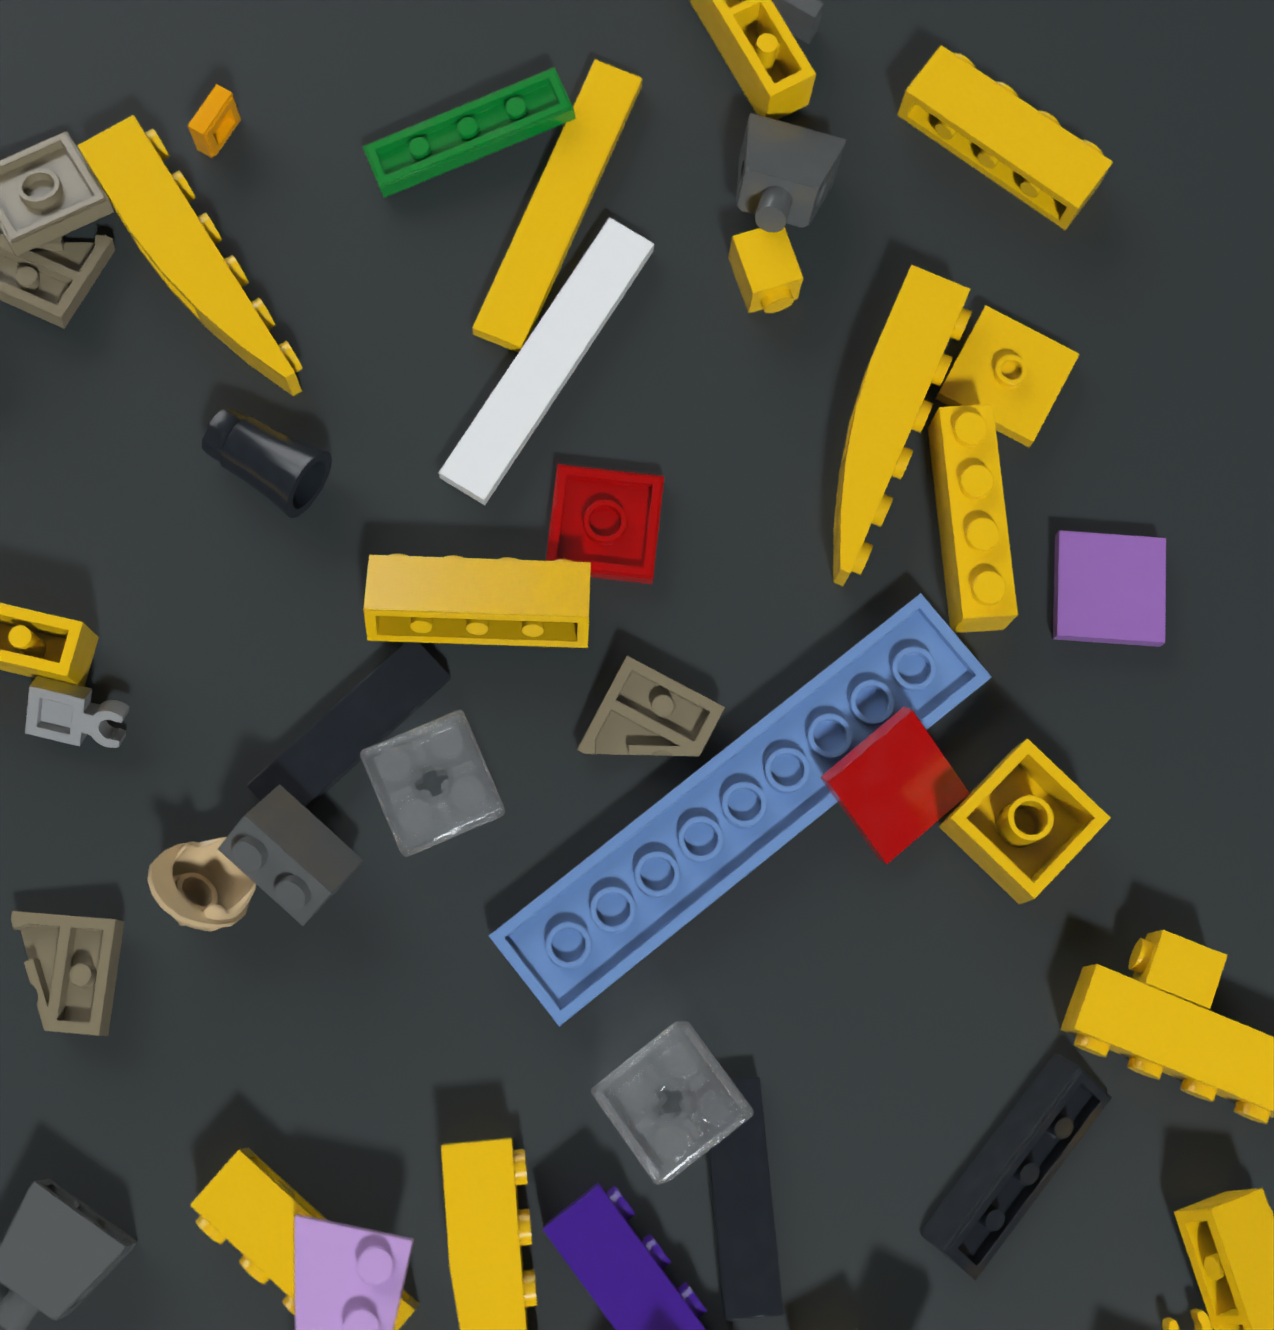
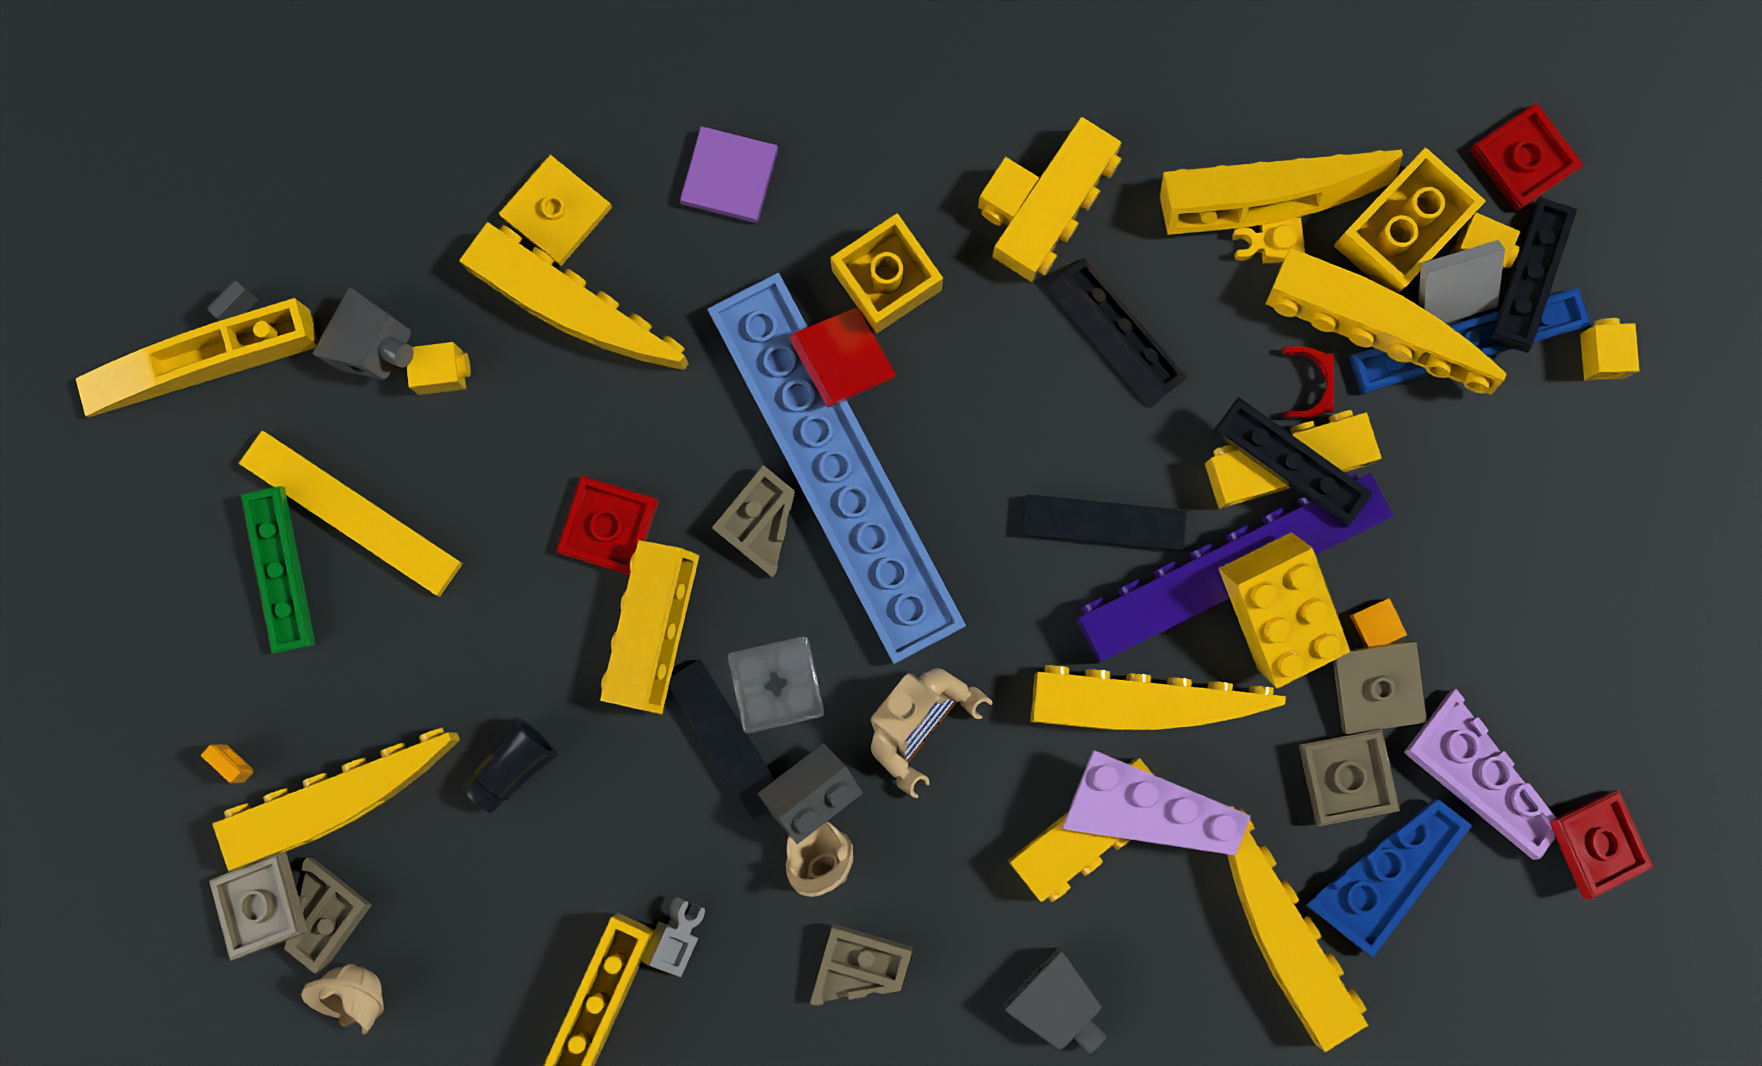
camera: 70 degrees left, 5 degrees up
(421, 975) = (912, 716): none -> tan torso
(546, 361) = (472, 544): white tile -> none
(635, 1097) = (1021, 580): clear brick -> none
(972, 519) = (659, 260): yellow brick -> none
(1003, 136) = (369, 170): yellow brick -> none

